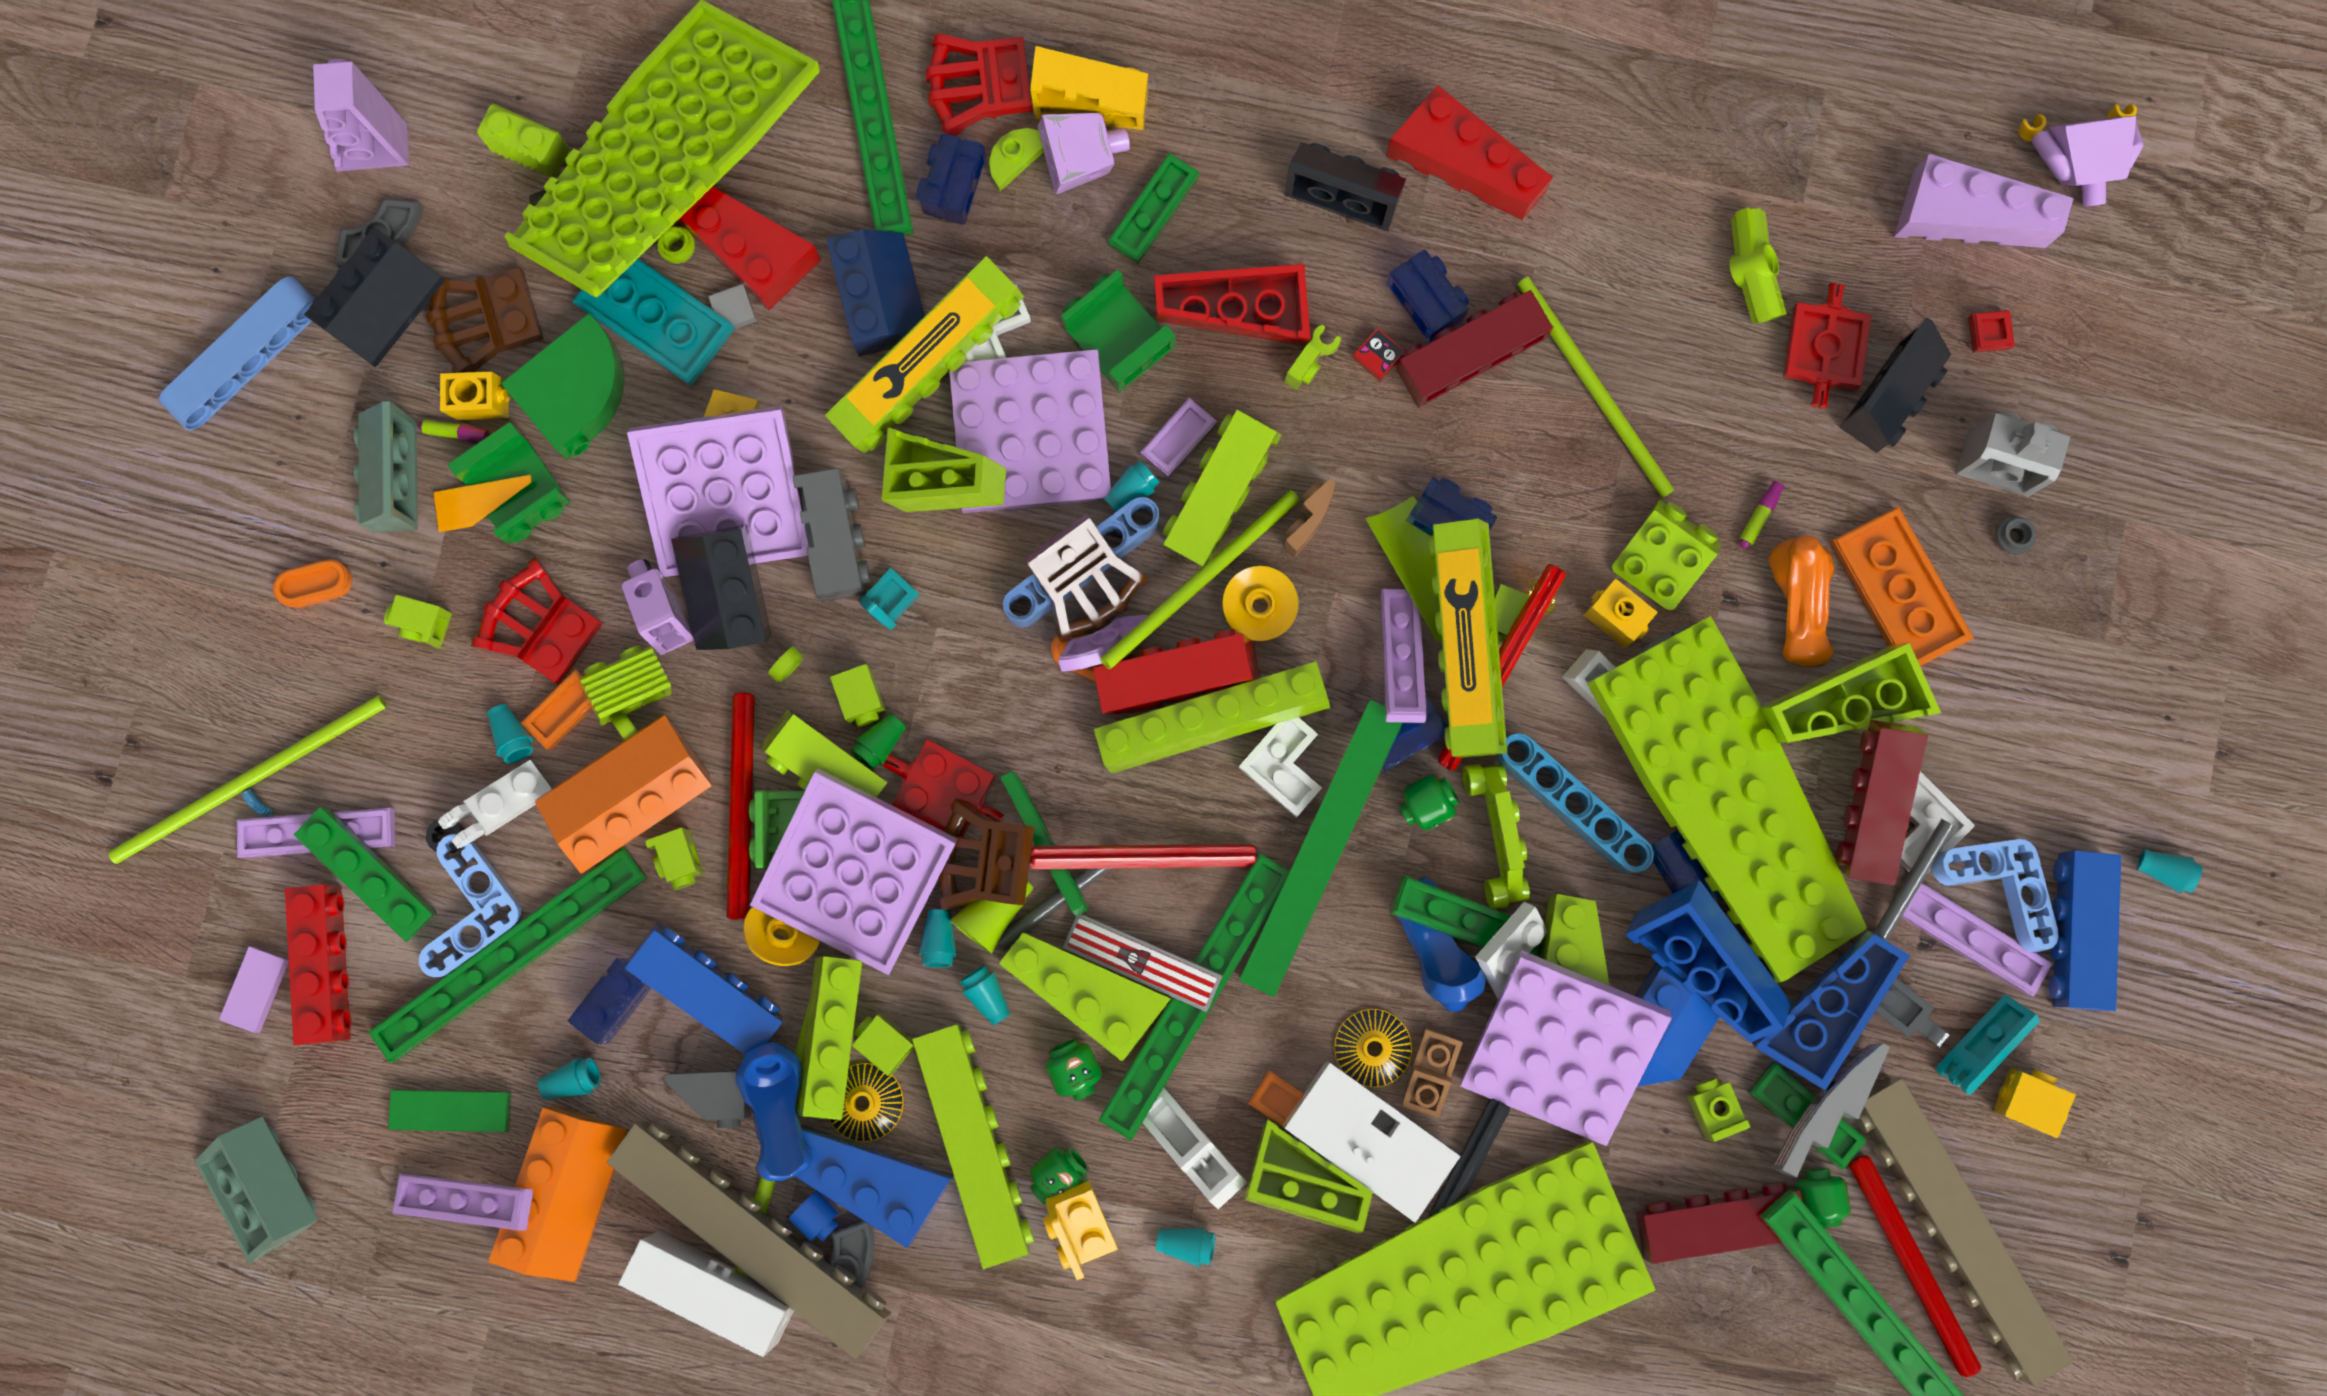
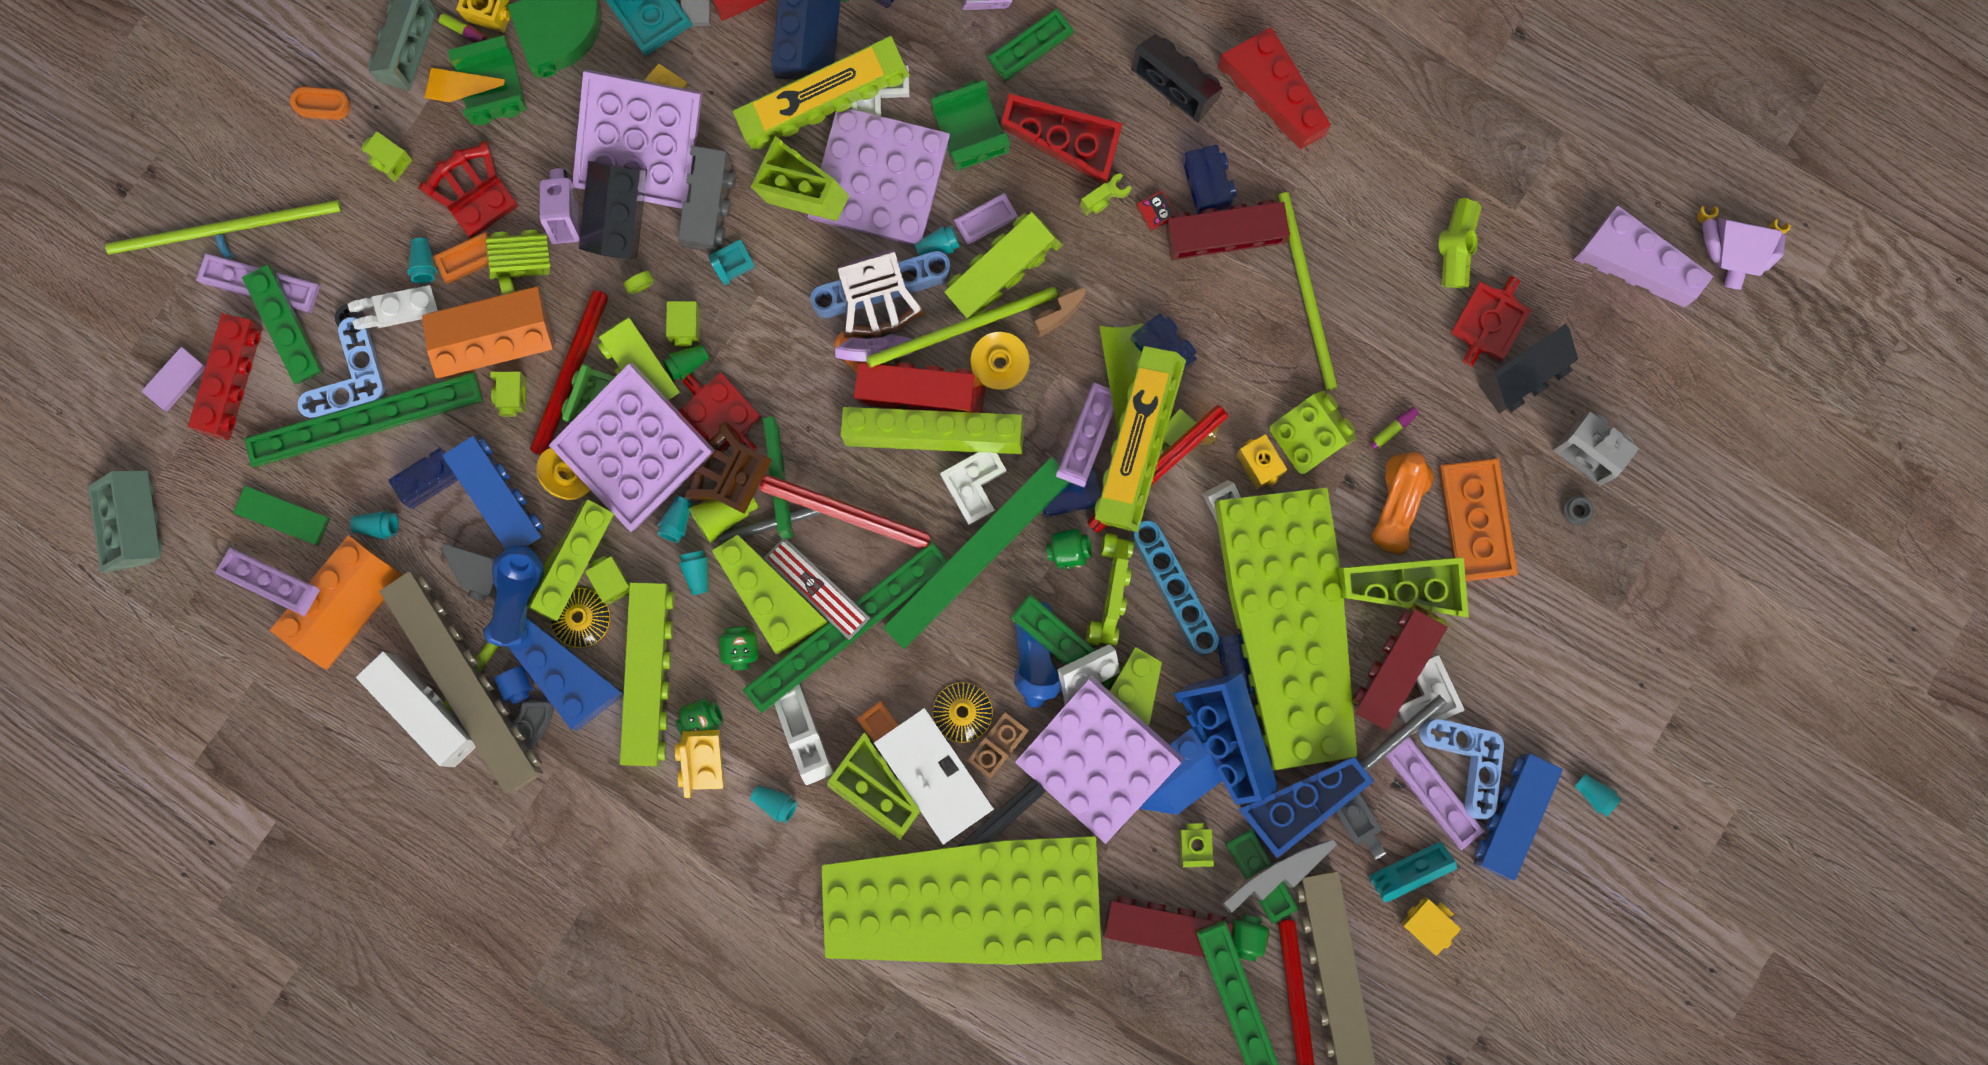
camera: 15 degrees right, 0 degrees up
(1991, 331) = (1618, 354): red tile -> none

